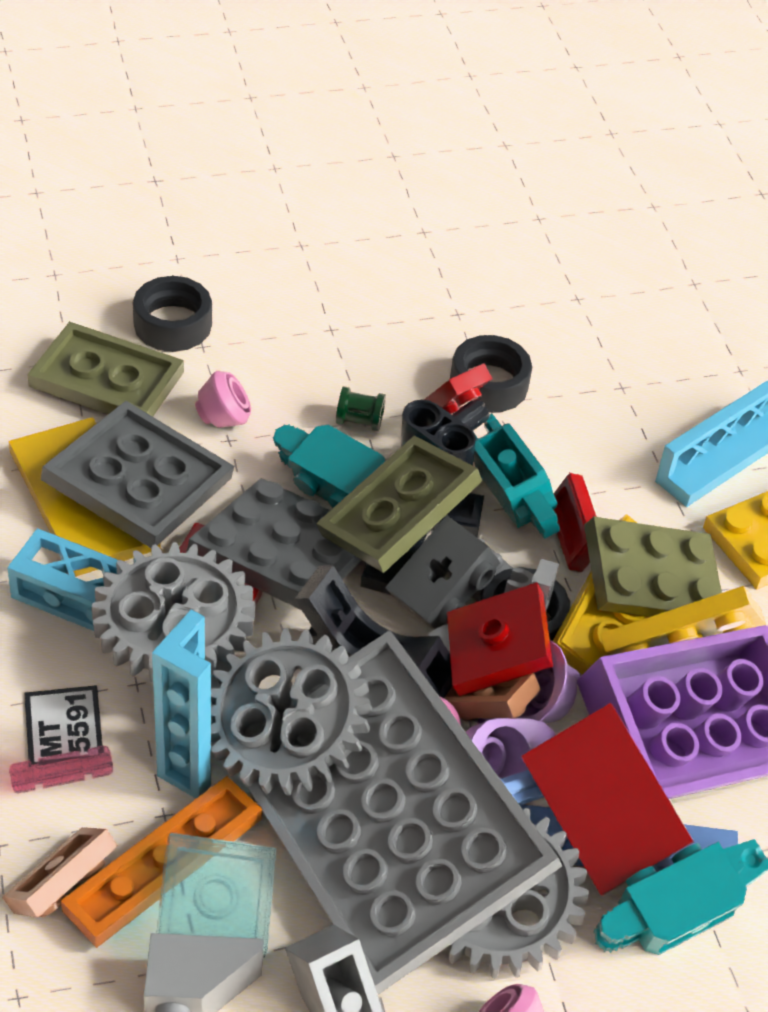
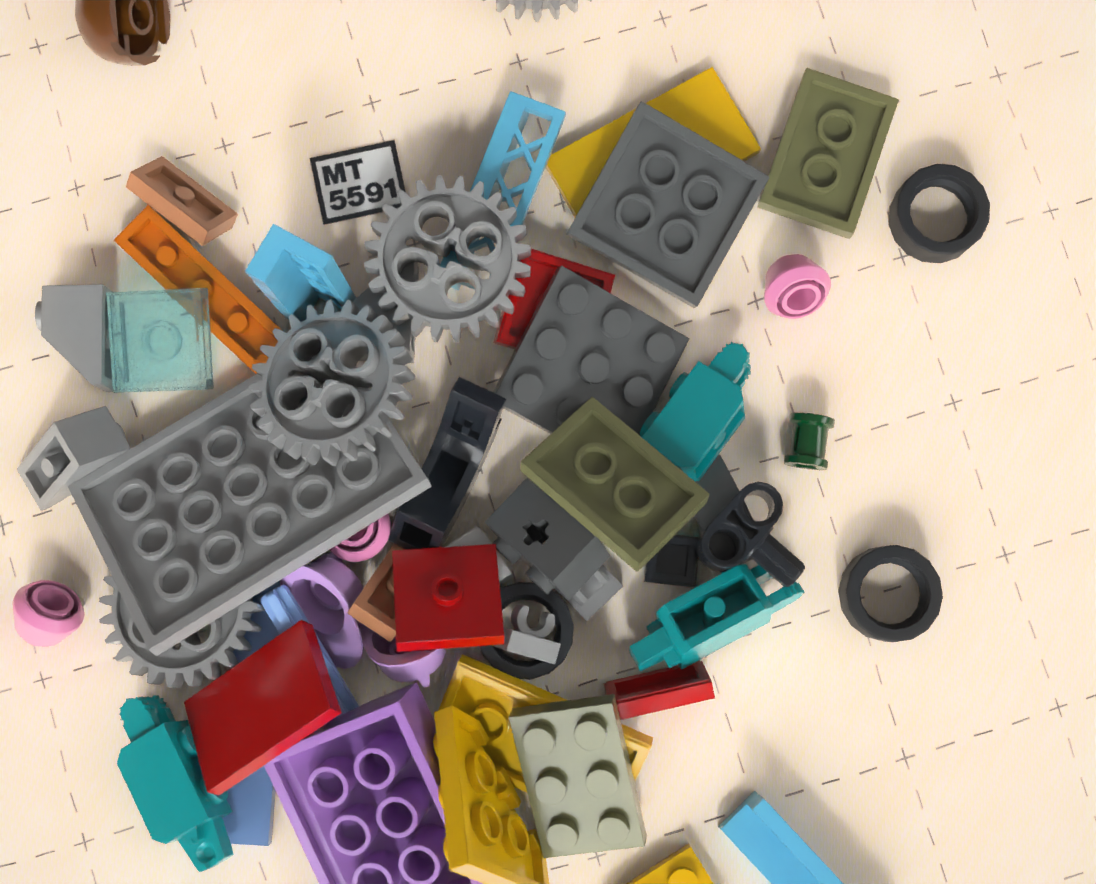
camera: 90 degrees right, 35 degrees up
(61, 769) = (298, 186): clear pink axle -> none
(461, 389) = (827, 547): red plate -> none

